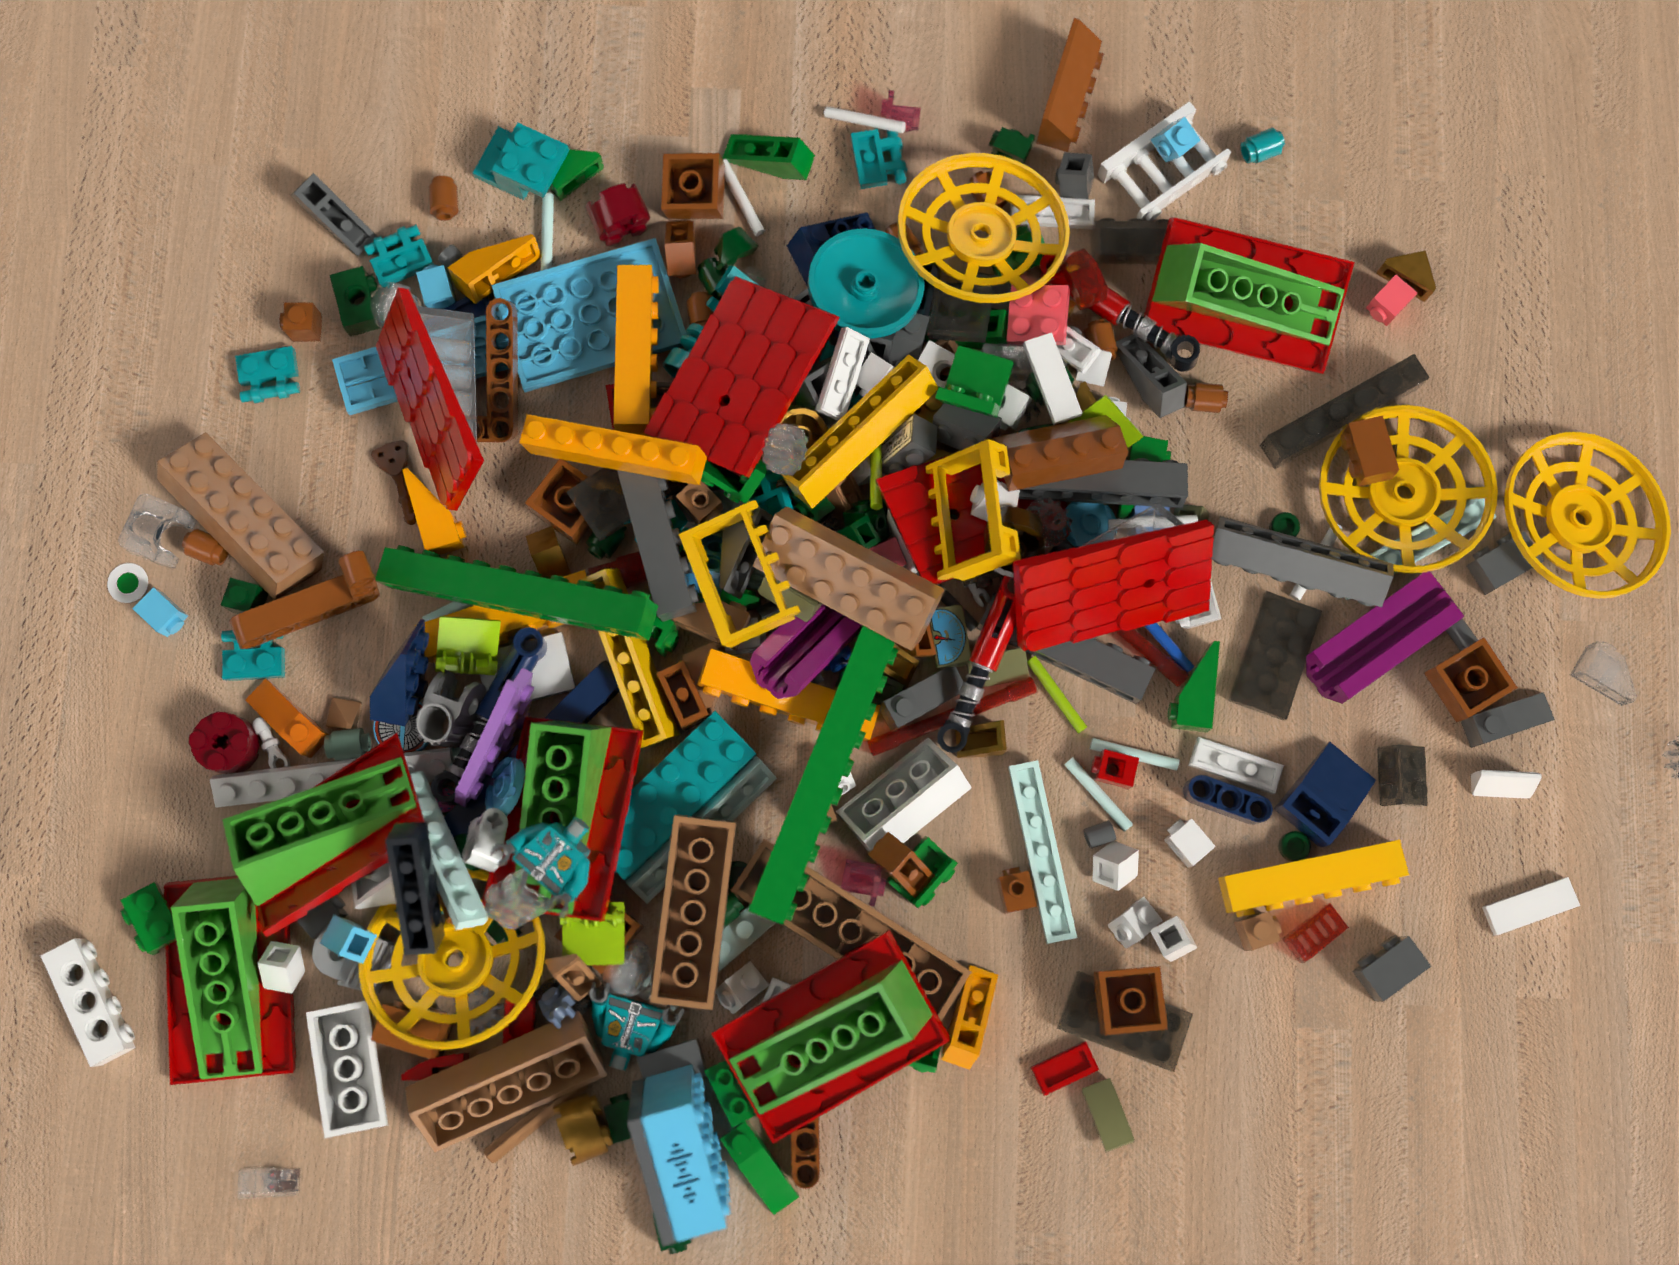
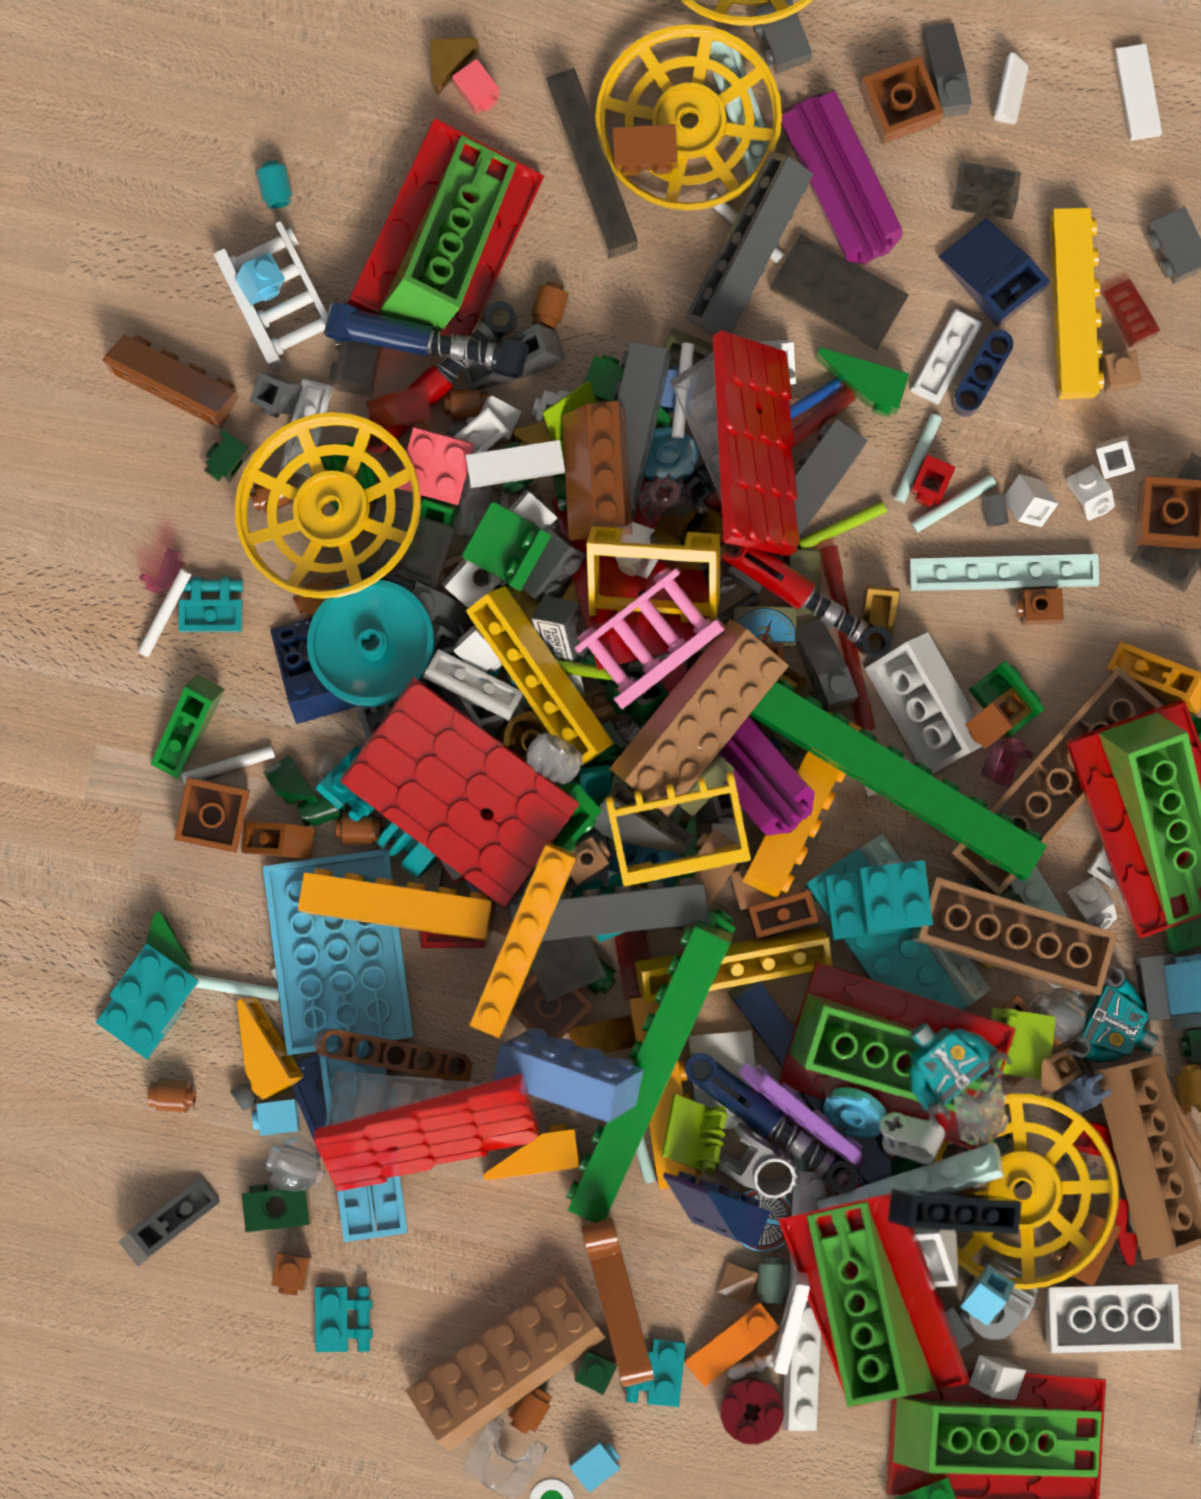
camera: 80 degrees left, 5 degrees up
(296, 761) = (790, 1322): none -> white tile
(395, 471) = (478, 1191): reddish brown piece -> none
(401, 262) = (238, 1151): teal plate -> none
(497, 515) = (570, 1074): none -> medium blue brick
(618, 213) = (229, 901): dark red brick -> none
(706, 774) = (878, 900): none -> teal bracket
(907, 545) = (653, 668): none -> bright pink fence
(1150, 222) = (351, 324): none -> piece
(1188, 842) = (1019, 421): white brick -> none
(1285, 523) = (702, 252): dark green tile -> none
(1294, 846) = (1039, 315): dark green tile -> none
(1461, 634) = (851, 95): dark grey hinge -> none

